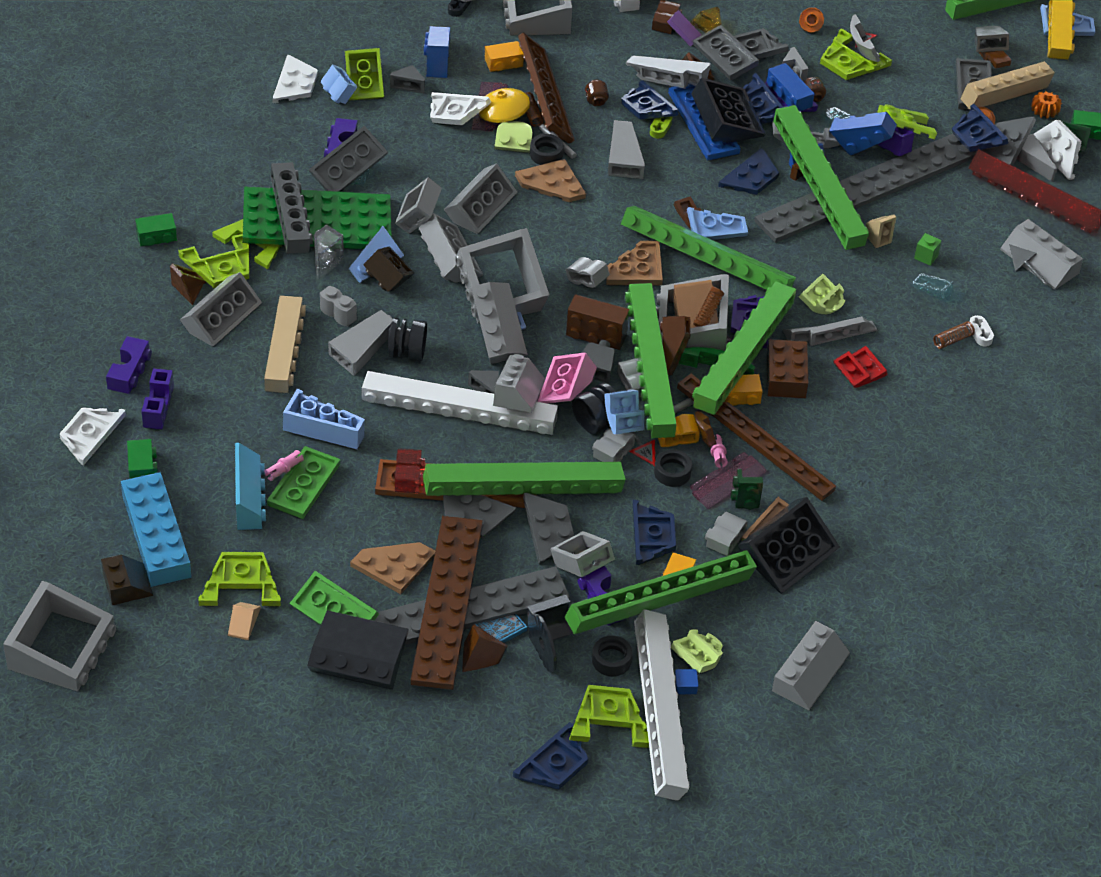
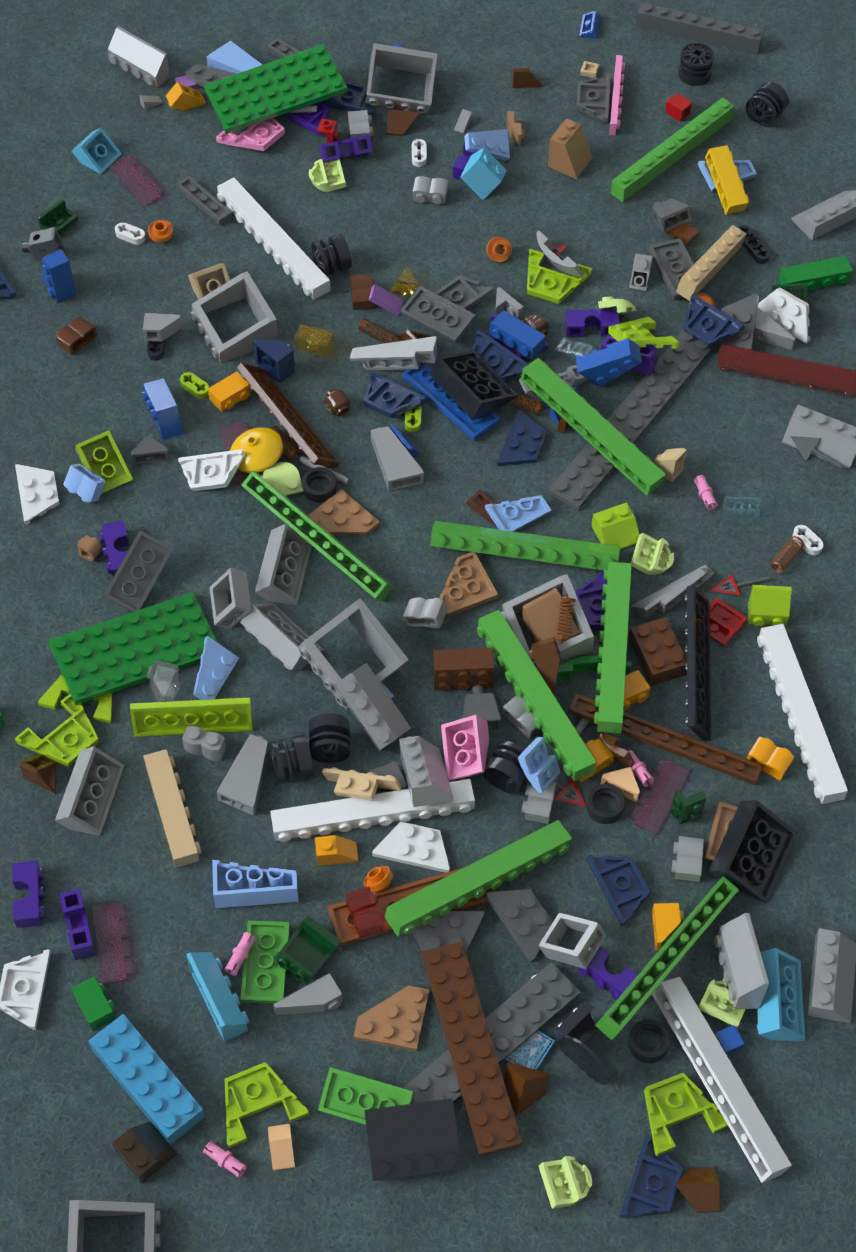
camera: 20 degrees left, 10 degrees up
(182, 426) = (110, 947): none -> clear pink windscreen
(191, 610) = (225, 1159): none -> bright pink pin
(290, 208) = (130, 689): dark grey brick -> none
(316, 274) = (176, 716): none -> lime plate
(317, 134) = (89, 548): none -> medium nougat plate
(330, 521) = (315, 997): none -> light grey slope
(344, 484) = (307, 950): none -> dark green panel
(388, 269) = (234, 680): dark brown slope -> none
(409, 421) = (335, 850): none -> light orange slope
(436, 454) = (379, 879): none -> orange plate
(448, 335) = (329, 738): none -> black wheel
(457, 376) = (358, 784): none -> tan bracket
(473, 45) = (193, 387): none -> lime beam
(478, 731) = (565, 1181): none -> yellowish green slope
(480, 442) = (414, 846): none -> white wing
(522, 184) = (317, 536): none -> bright green brick
(558, 41) = (275, 358): none -> dark blue slope
(596, 781) = (701, 1189): none -> reddish brown slope
(601, 40) = (314, 340): none -> clear yellow brick
(642, 140) = (405, 441): none -> blue slope
(661, 48) = (366, 321): none -> dark orange piece
(699, 455) = (624, 781): none -> light nougat slope
(725, 621) = (742, 963): none -> light grey slope
(752, 664) = (782, 1006): none -> medium azure slope
(778, 150) = (539, 406): none -> dark orange piece
(801, 262) = (616, 526): none -> lime slope
(817, 386) = (698, 663): none -> black plate
(848, 484) = (773, 759): none -> light orange brick
(857, 96) = (578, 320): none -> dark purple arch
(885, 344) = (729, 586): none -> piece
(896, 460) = (802, 714): none -> white brick
(897, 91) = (622, 305): none -> yellowish green slope
(902, 264) = (705, 492): none -> bright pink pin
(911, 364) = (769, 605): none -> lime slope
(927, 249) = (722, 469): bright green brick -> none
(938, 75) = (641, 271): none -> light grey slope
(1046, 104) = (751, 269): orange gear -> none
(1062, 81) = (755, 251): none -> black beam

